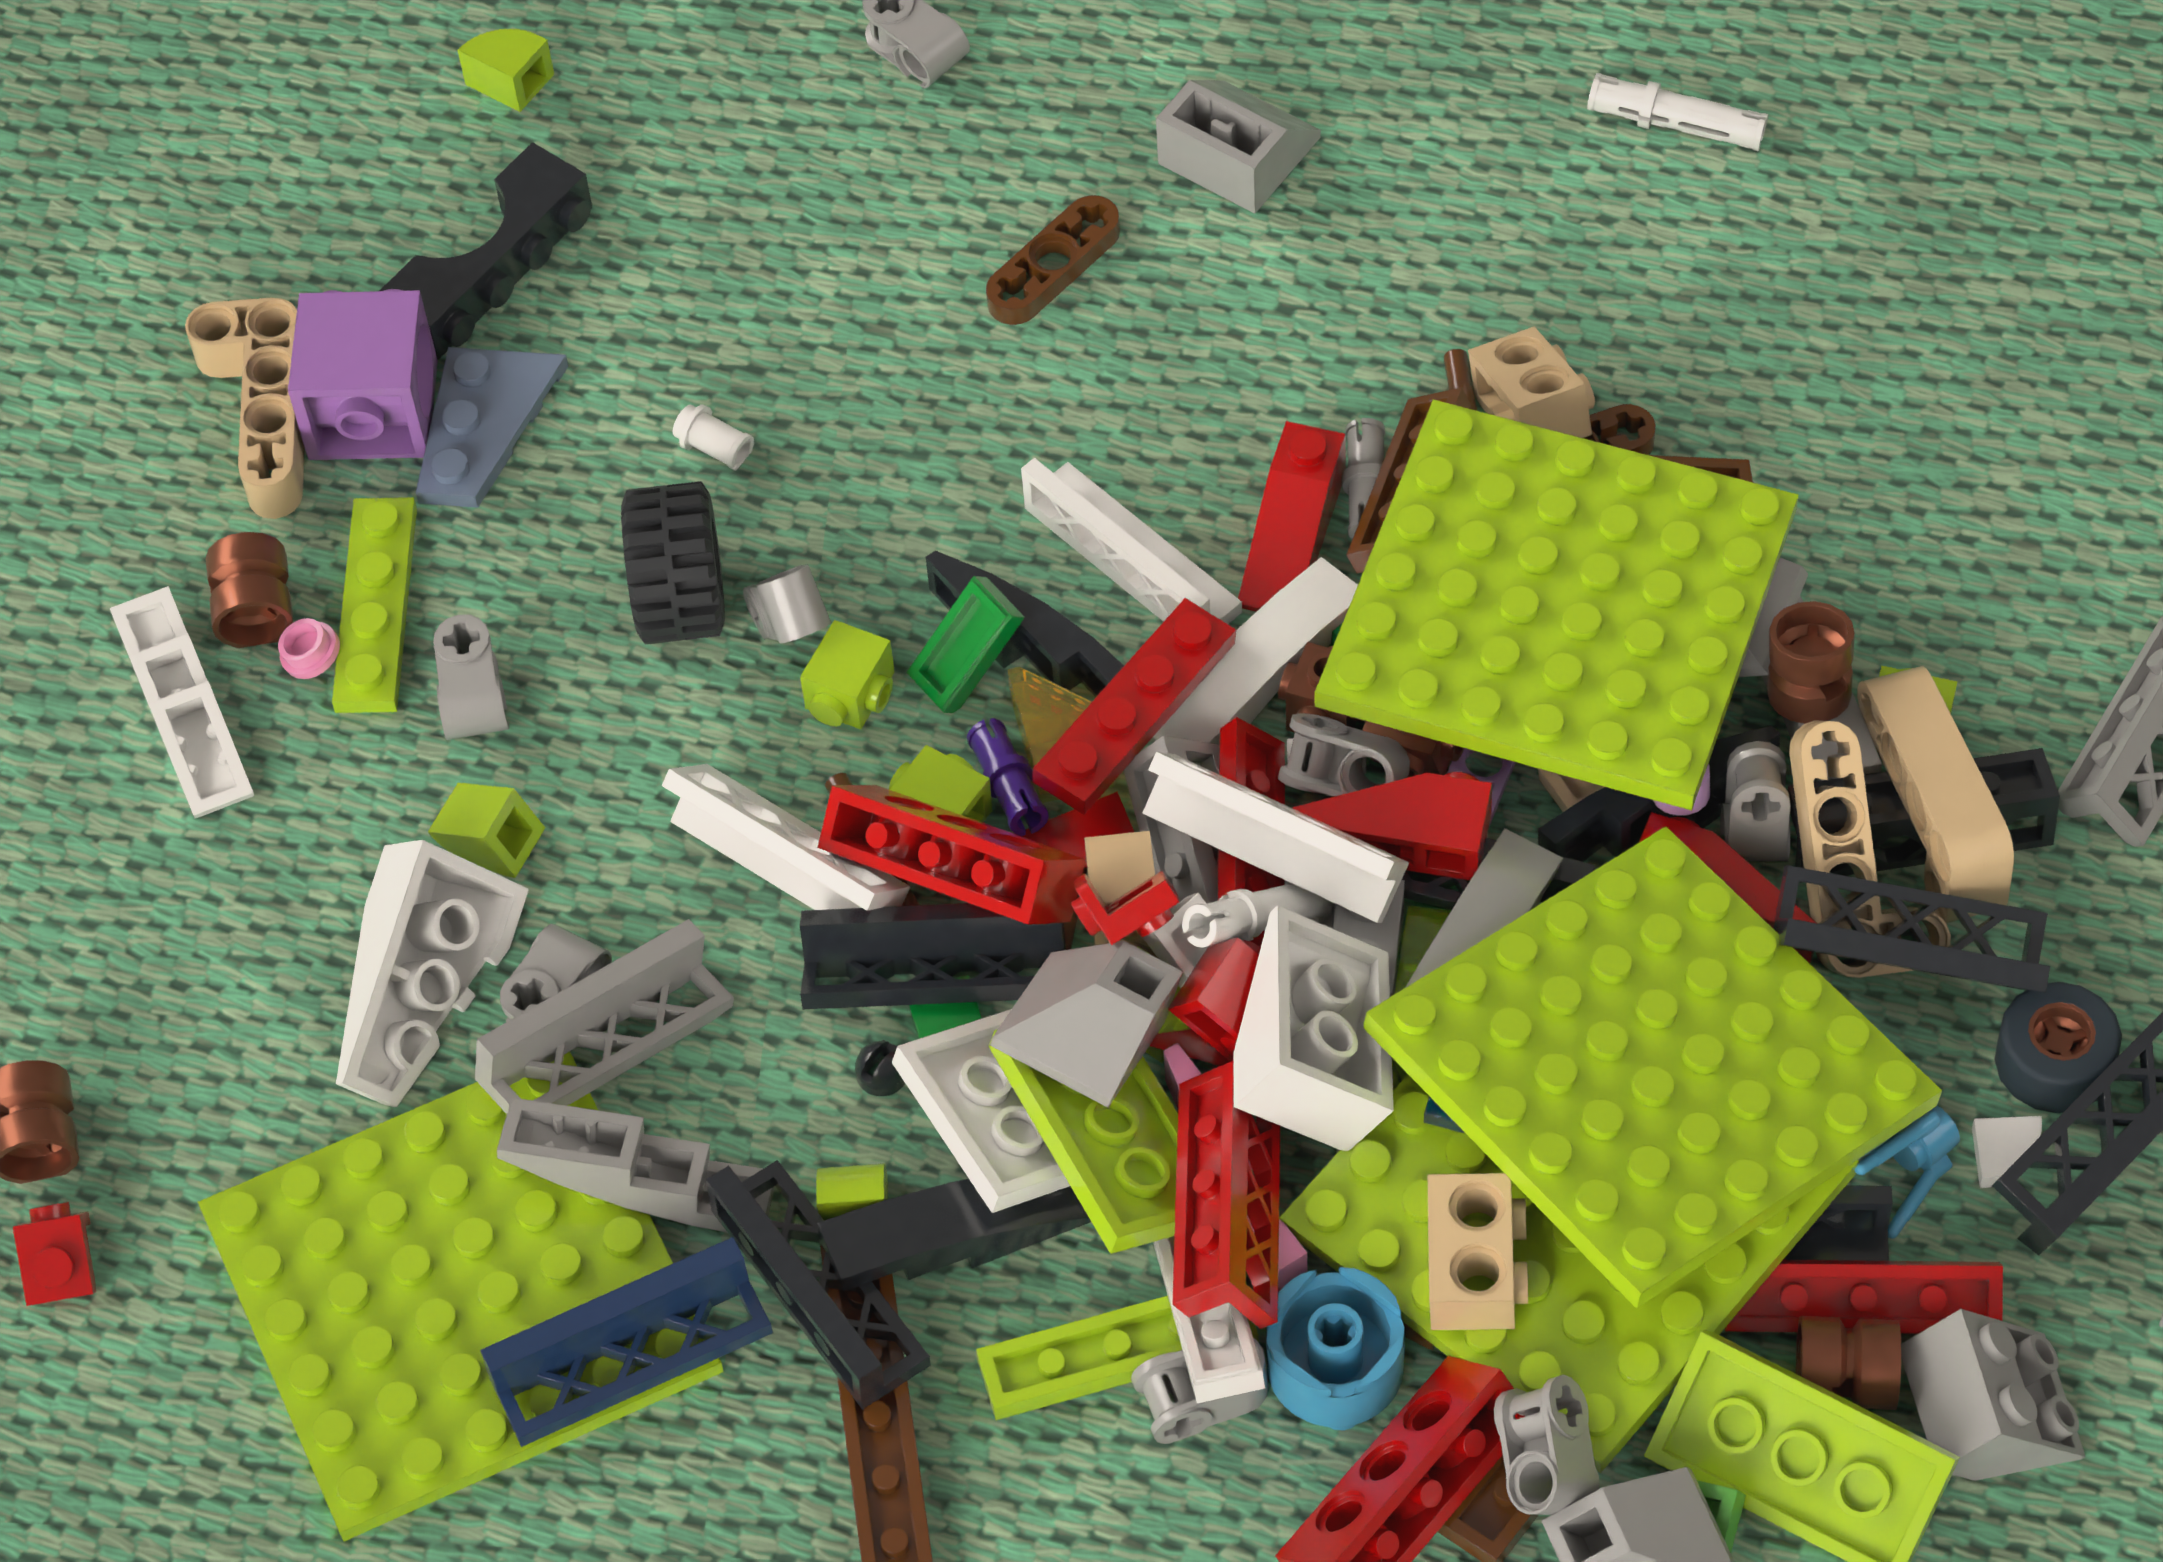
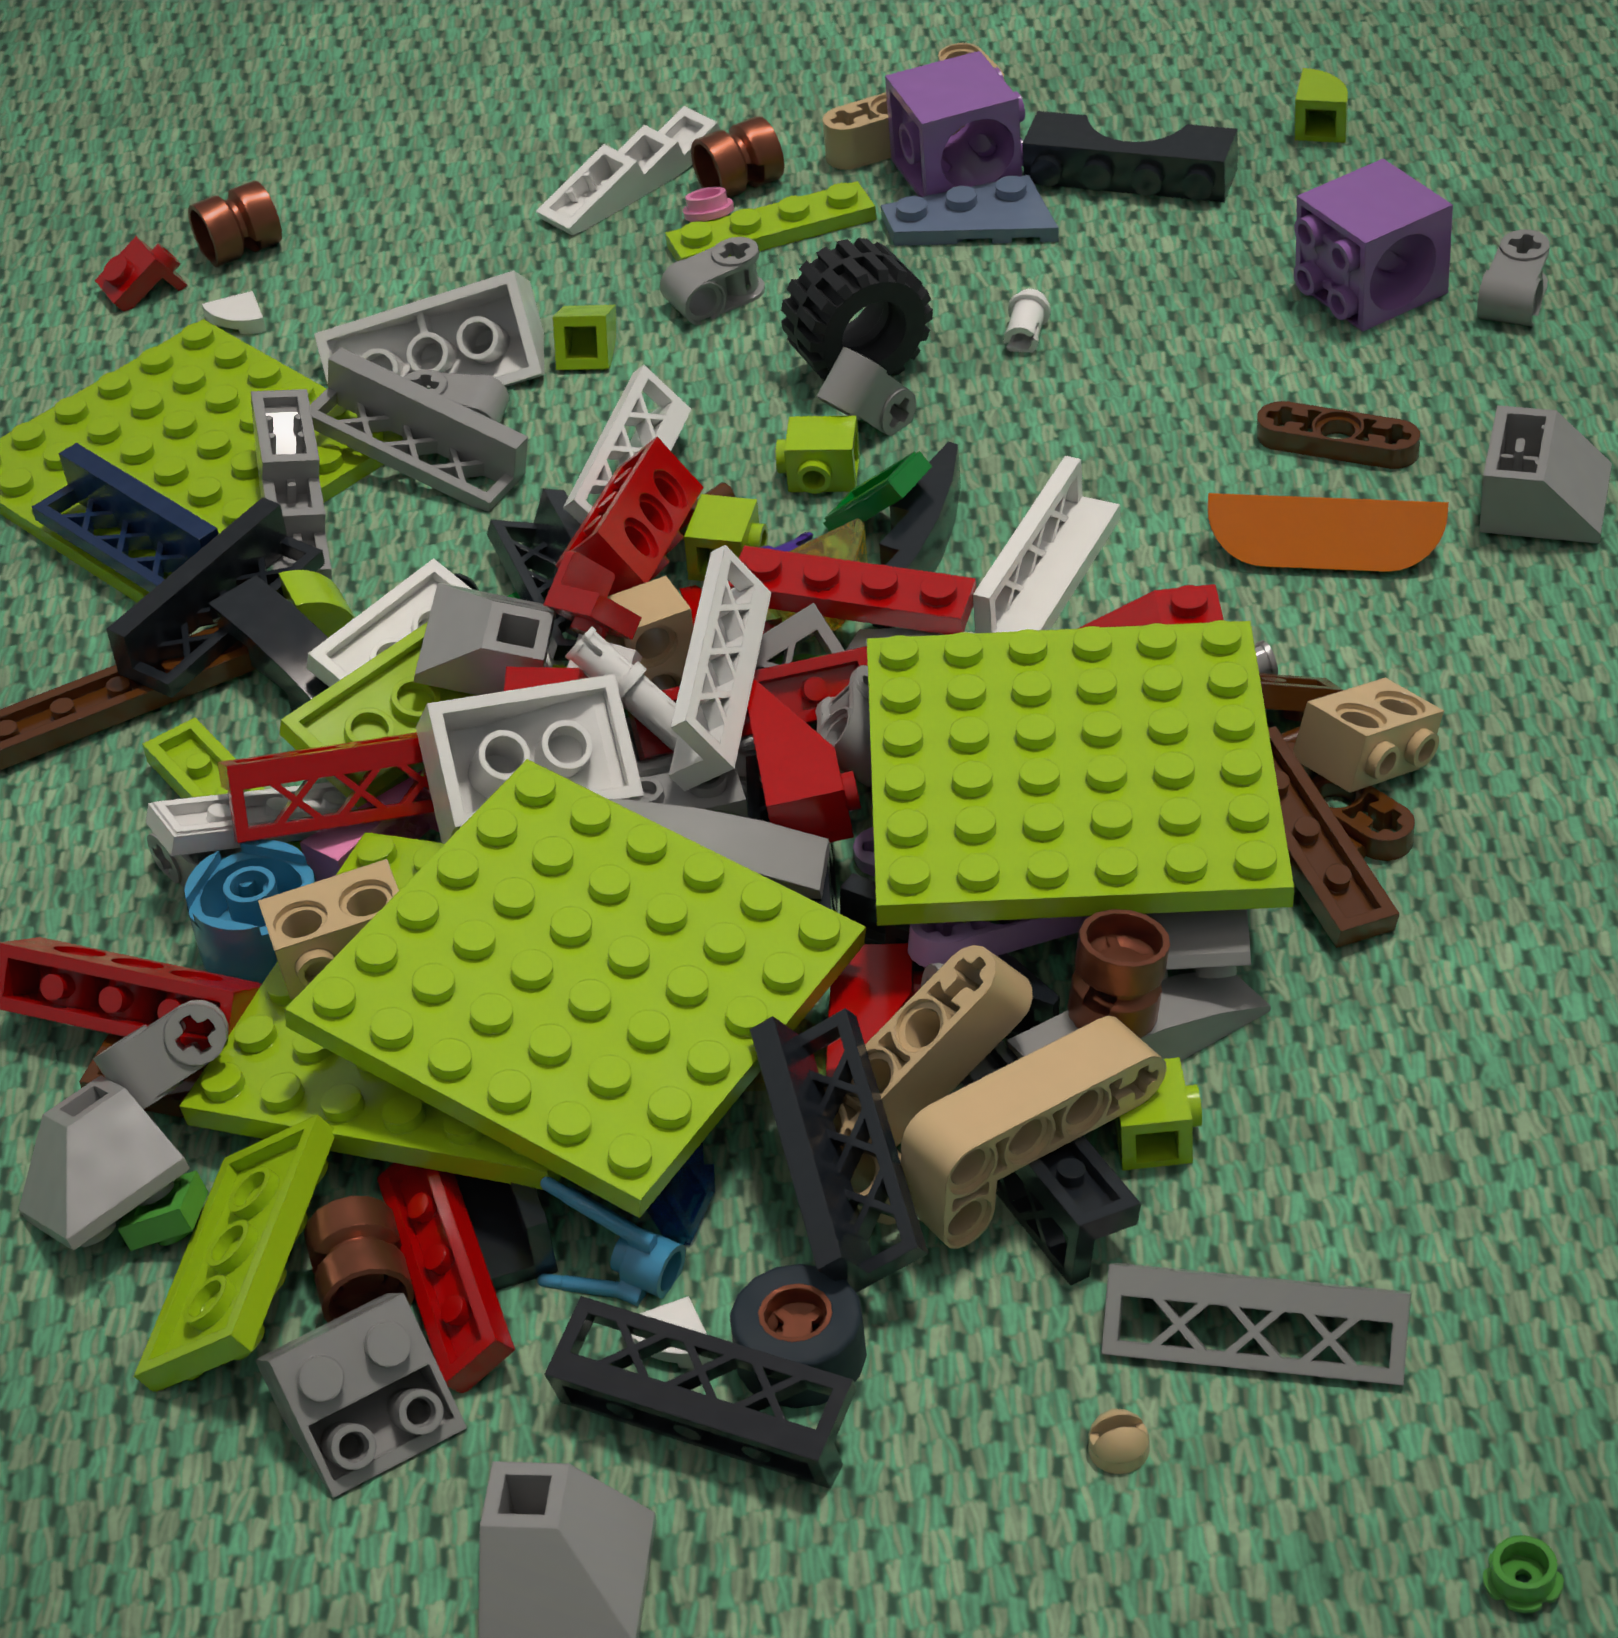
camera: 70 degrees right, 15 degrees down
(197, 1167) = (236, 313): none -> white tile
(815, 112) = (1372, 244): none -> medium lavender brick
(1208, 315) = (1326, 531): none -> orange brick

